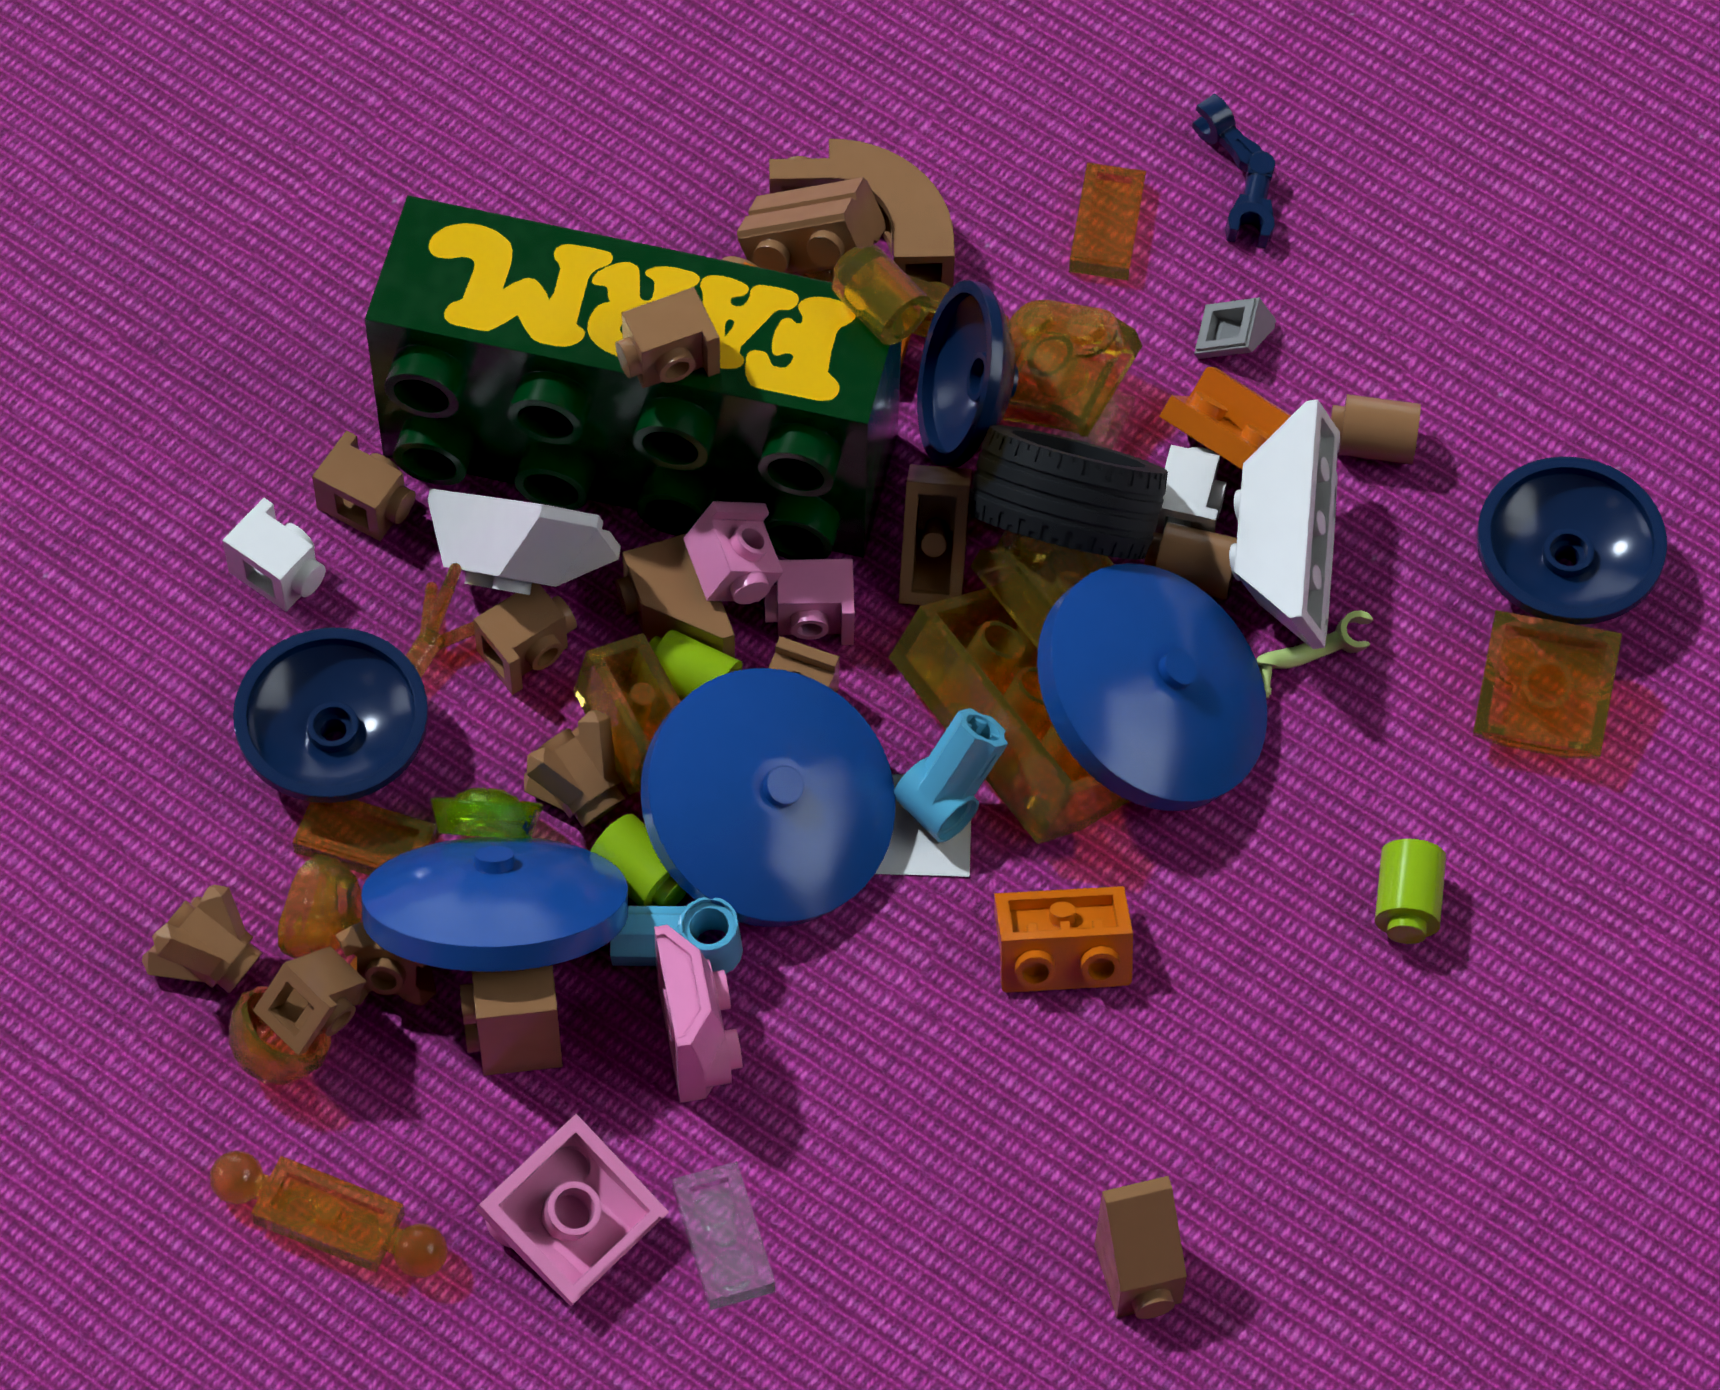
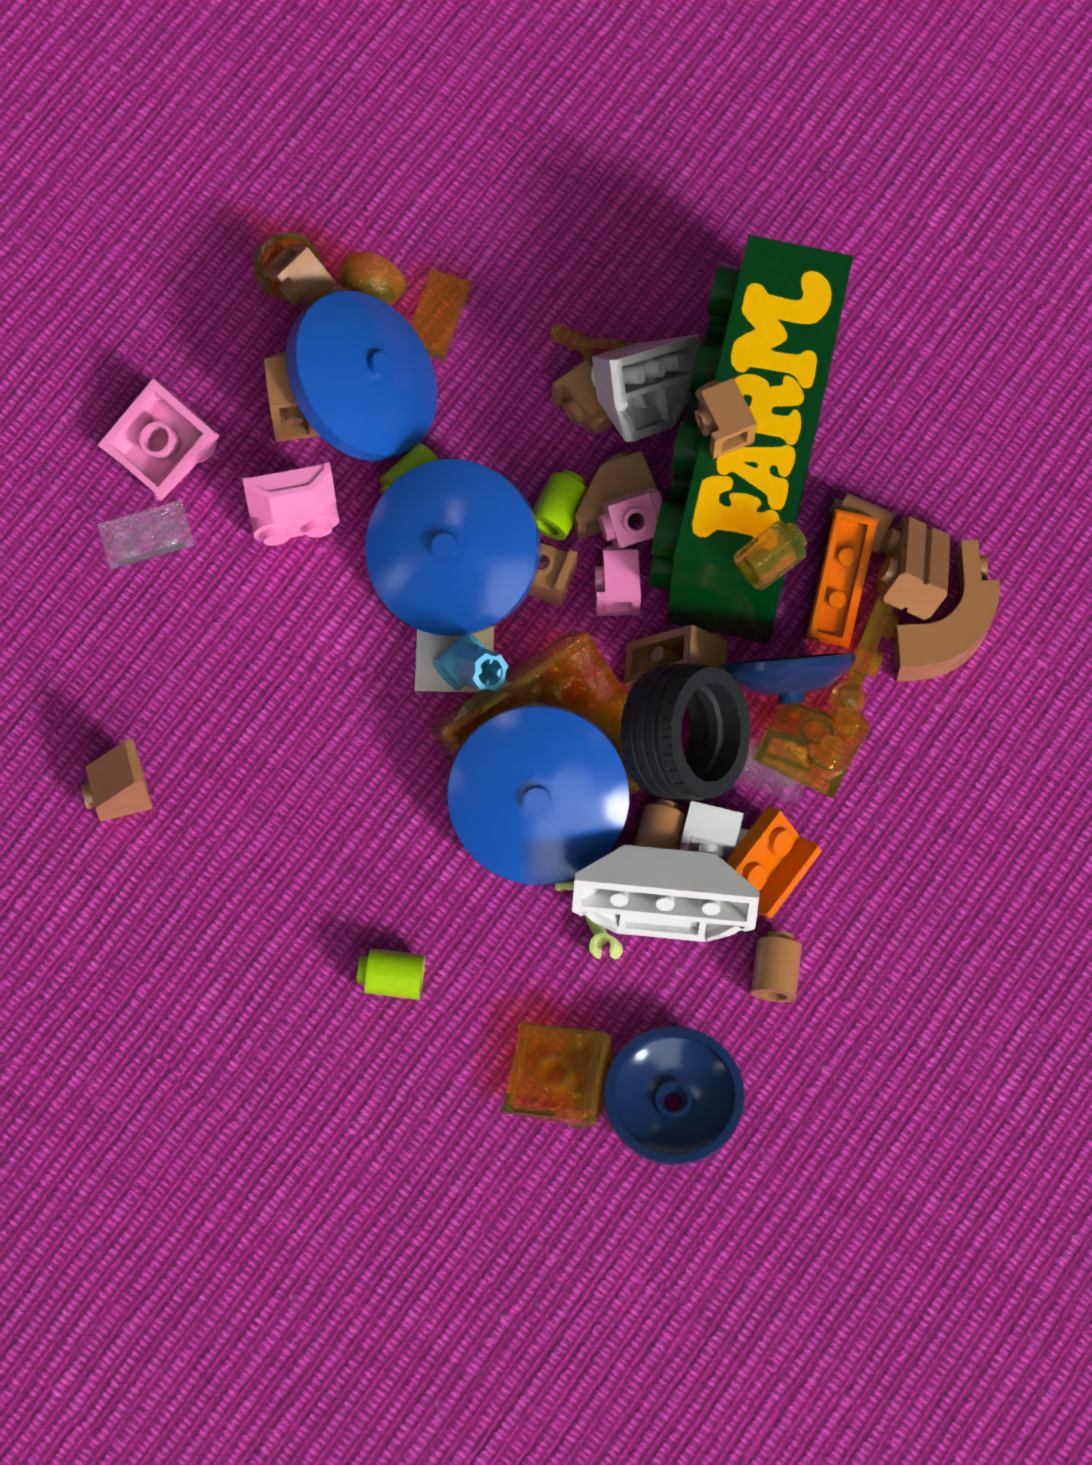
camera: 90 degrees right, 10 degrees up
(203, 942) = (351, 218): medium nougat rock -> none
(273, 557) = (644, 243): white brick -> none
(326, 685) = (507, 258): dark blue dish -> none
(328, 1214) = (166, 304): clear yellow plate -> none
(362, 488) = (693, 294): medium nougat brick -> none
(485, 814) = (443, 377): clear neon green hat -> none
(577, 770) = (479, 432): medium nougat rock -> none
(635, 692) = (527, 457): clear yellow brick -> none
(637, 939) = (357, 498): medium azure piece -> none
(1064, 939) = (360, 743): orange bracket -> none
(1107, 221) = (959, 786): clear yellow tile -> none
(1233, 328) = (865, 873): light grey slope -> none
(1252, 207) = (1008, 894): dark blue piece -> none

